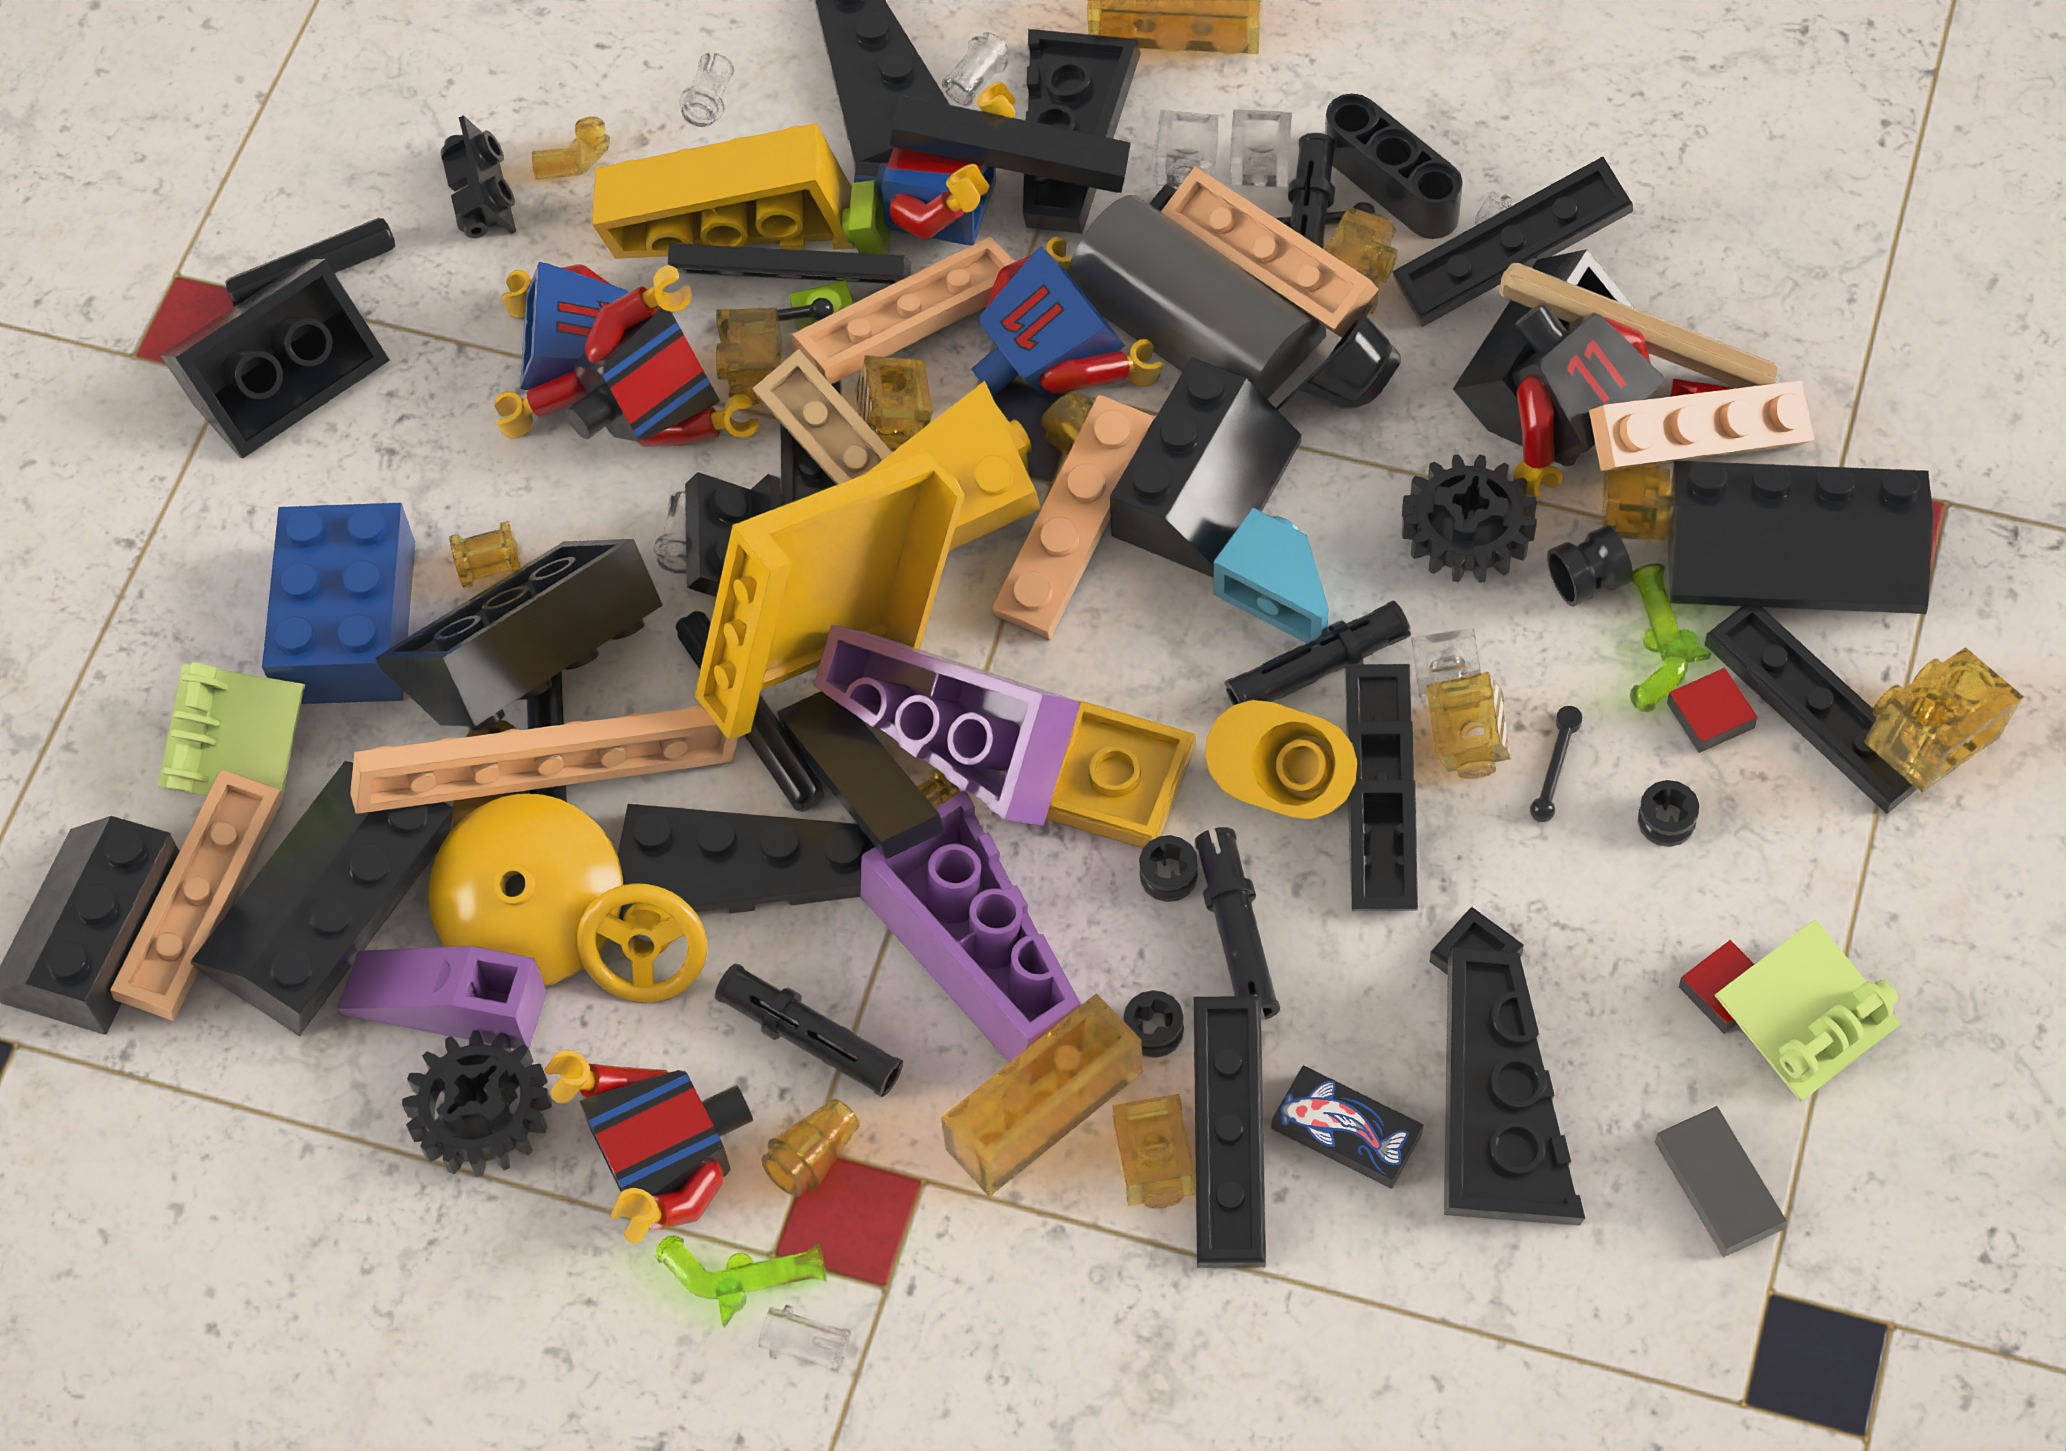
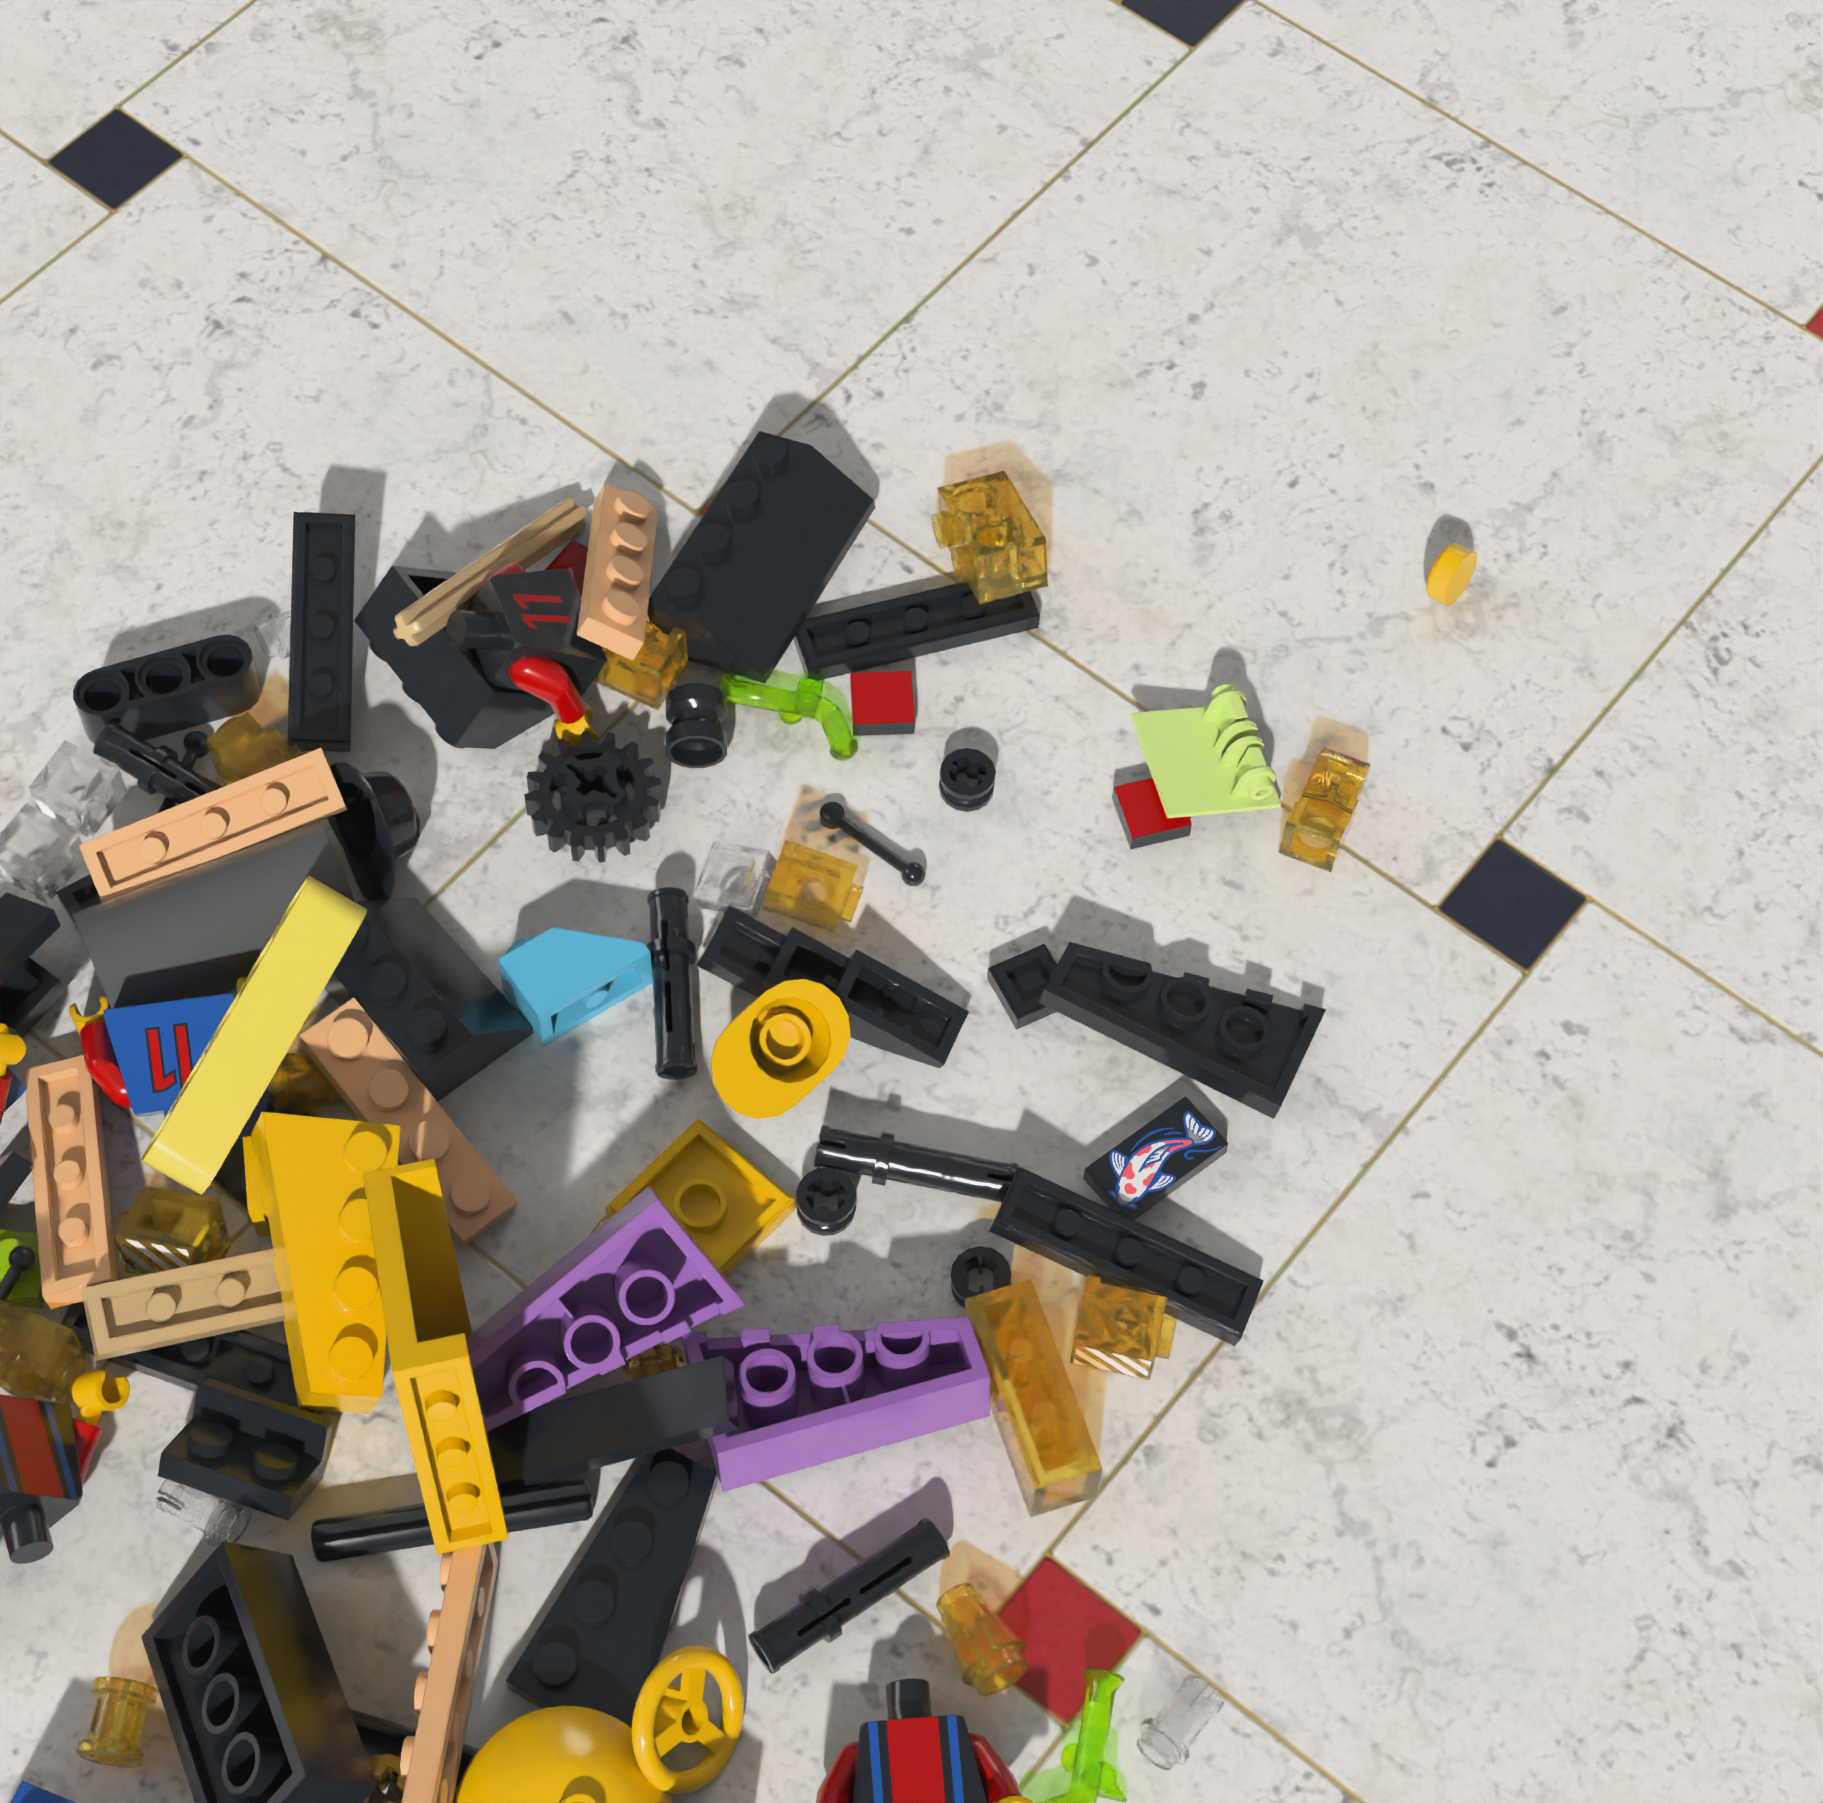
camera: 75 degrees left, 0 degrees up
(1078, 356) = (254, 1036): none -> light yellow beam
(1720, 1181) = (1328, 896): dark grey tile -> none
(1817, 1139) = (1325, 809): none -> clear yellow leg

